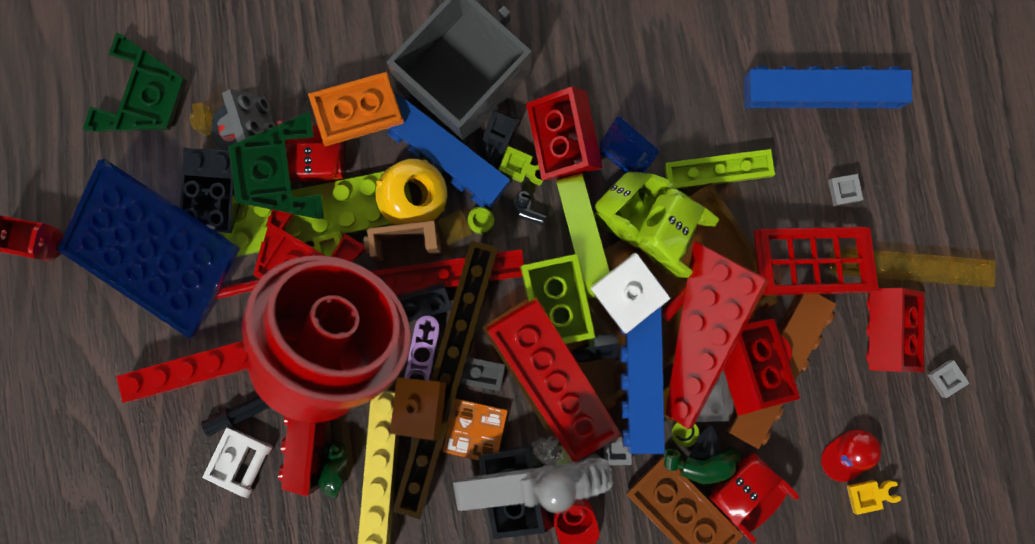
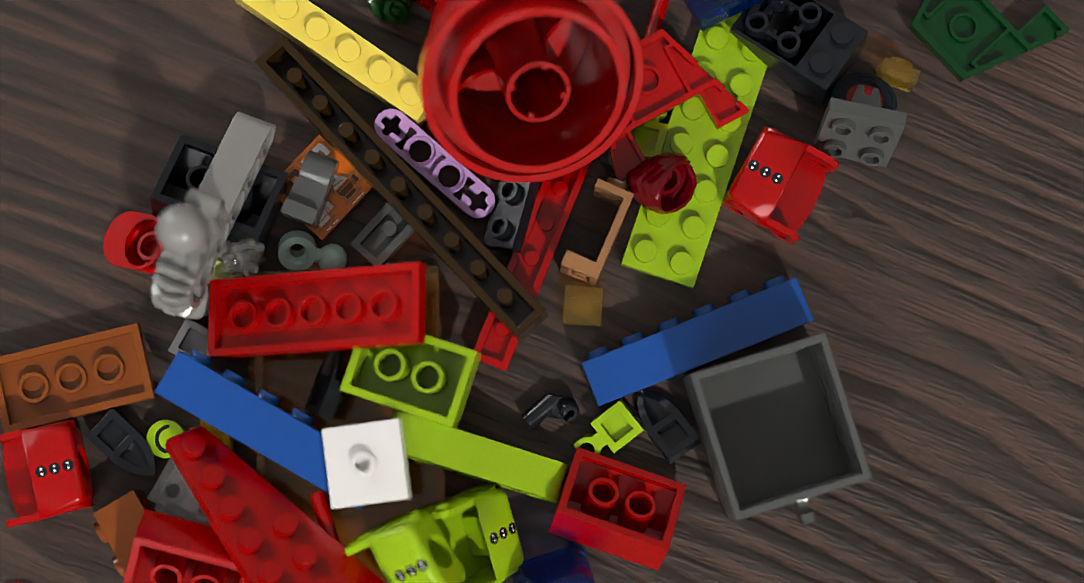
camera: 120 degrees right, 0 degrees up
(262, 171) = (780, 109): dark green wing -> none
(350, 218) = (663, 182): none -> dark red hair
(355, 108) = (796, 266): orange tile -> none
(392, 198) = (669, 252): yellow piece -> none
(418, 408) = (382, 132): reddish brown plate -> none
(479, 435) = (311, 189): none -> dark grey leg
(481, 220) = (572, 343): lime tile -> none
(515, 399) = (328, 257): none -> light aqua plate
(704, 471) = (103, 436): dark green arm -> none

